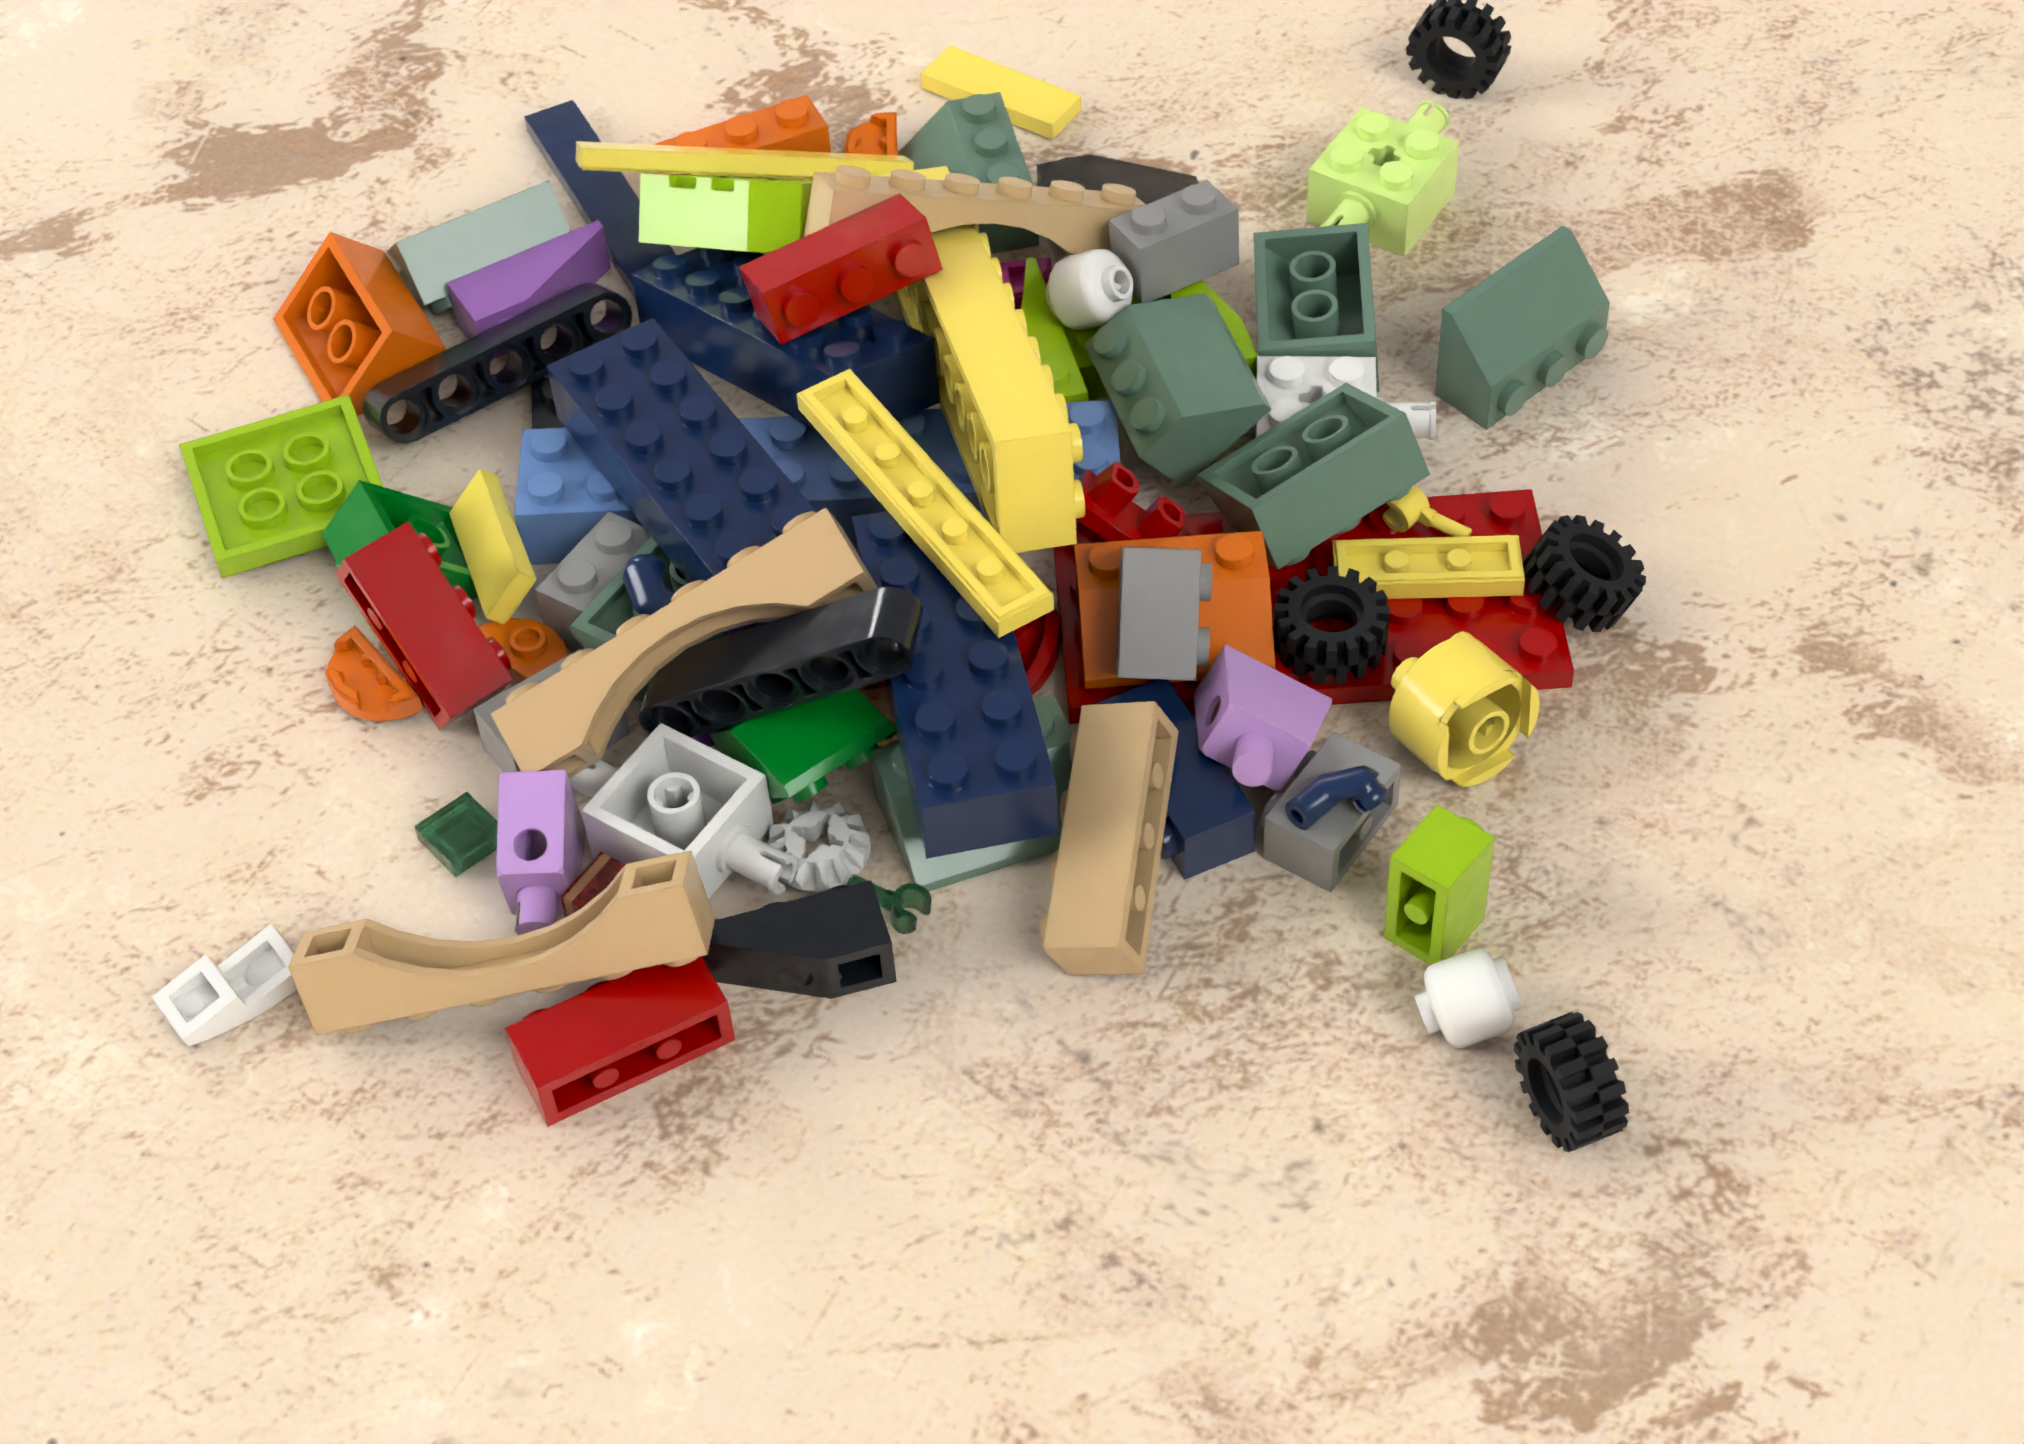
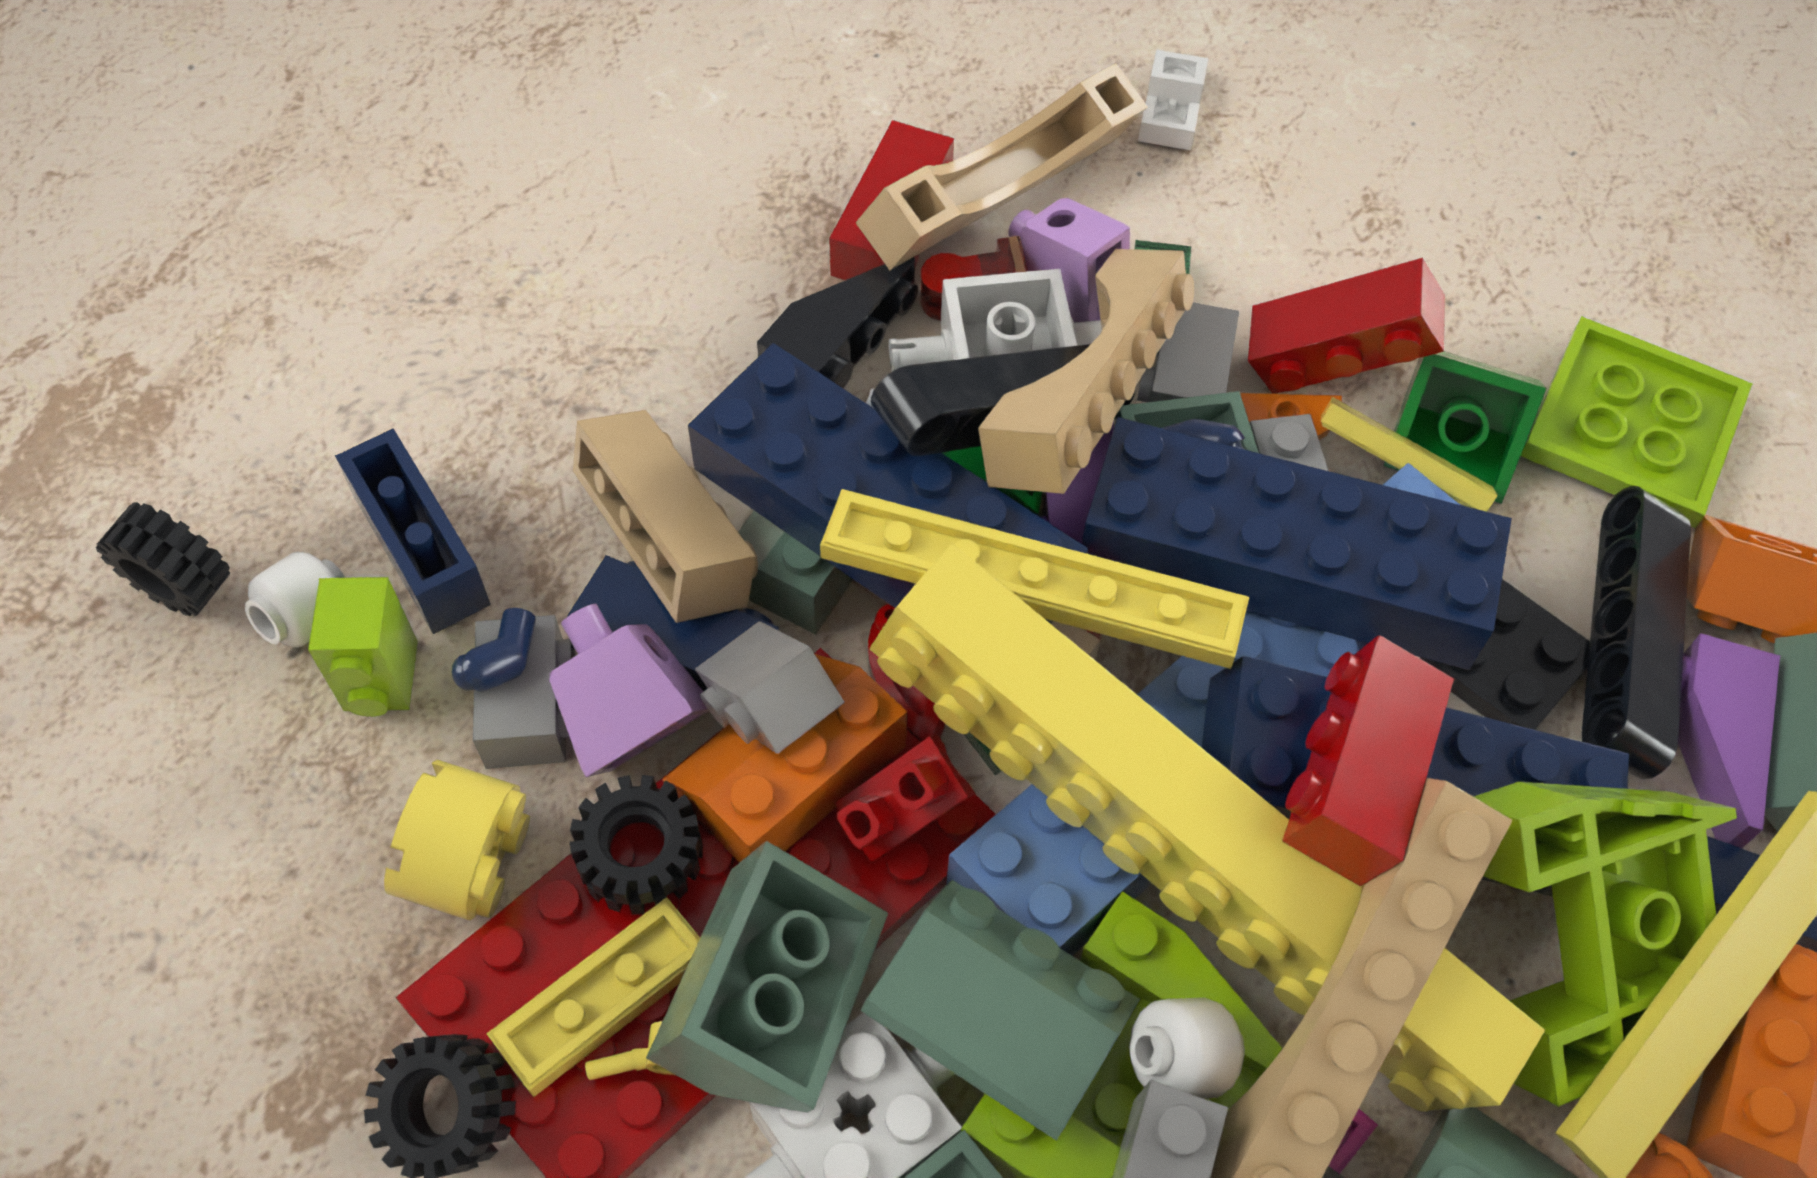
camera: 135 degrees right, 10 degrees up
(1328, 978) = (413, 530): none -> dark blue brick

